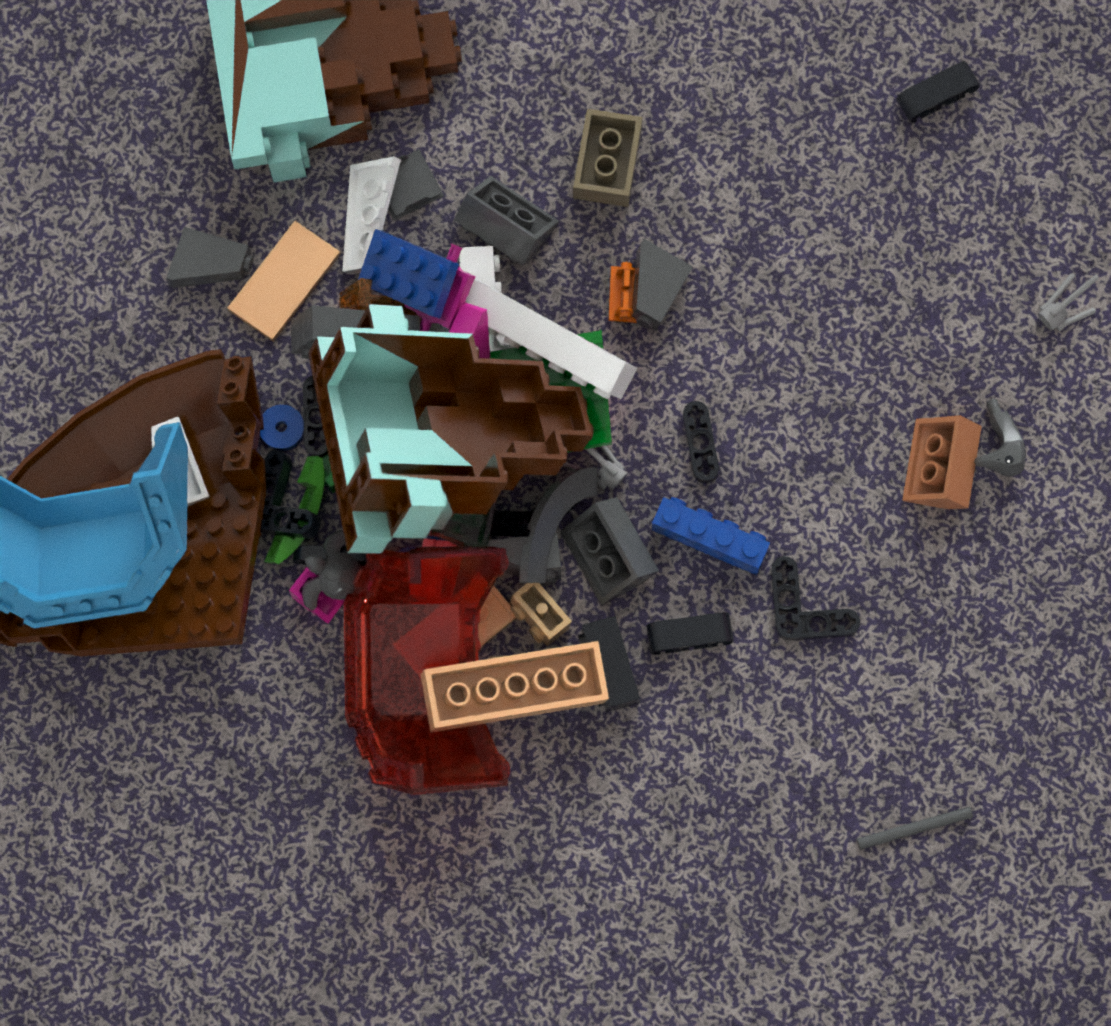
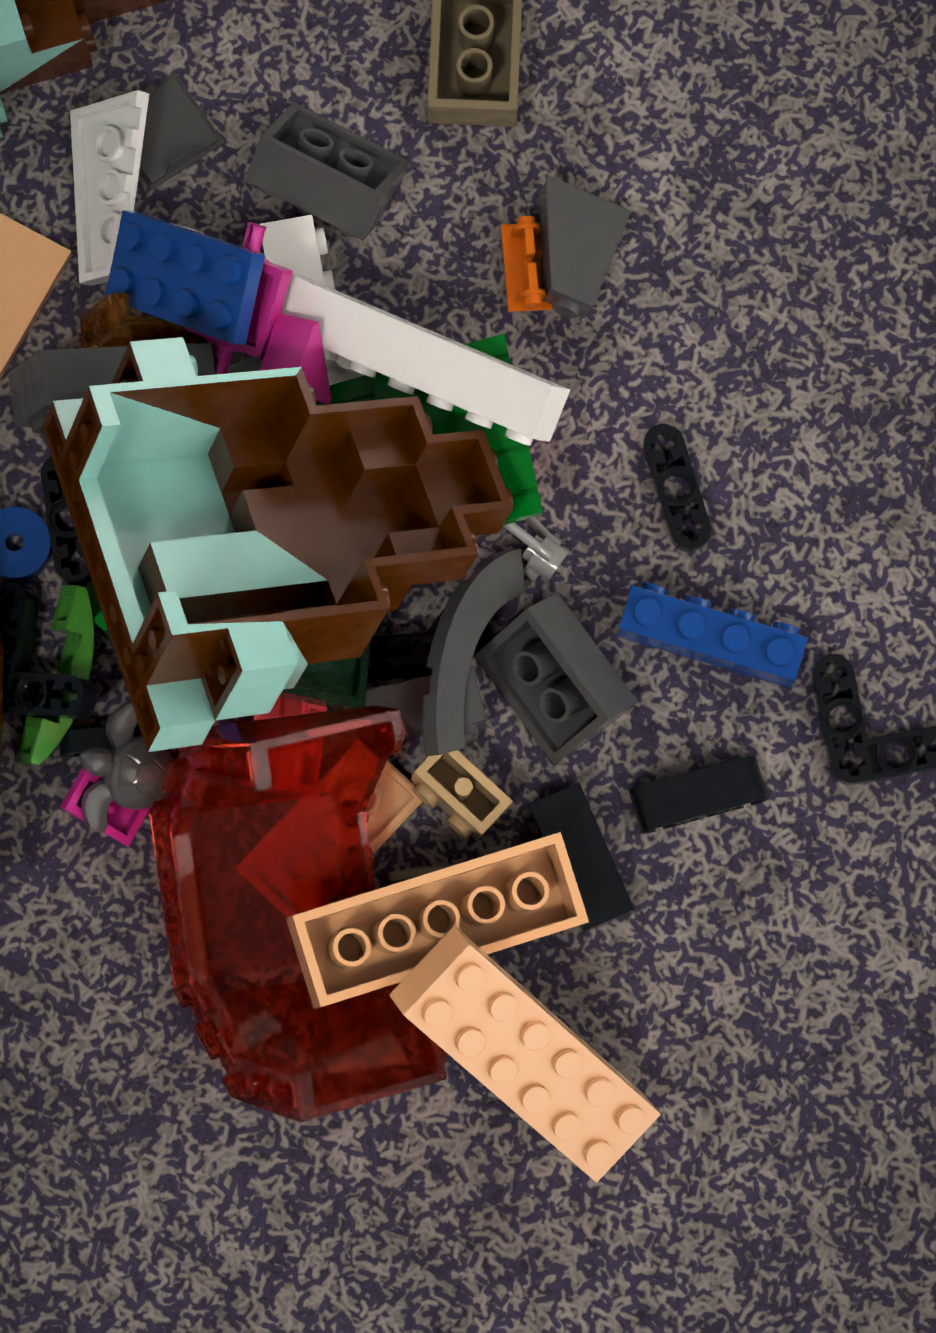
camera: 10 degrees left, 5 degrees up
(558, 776) = (524, 1054): none -> light nougat brick

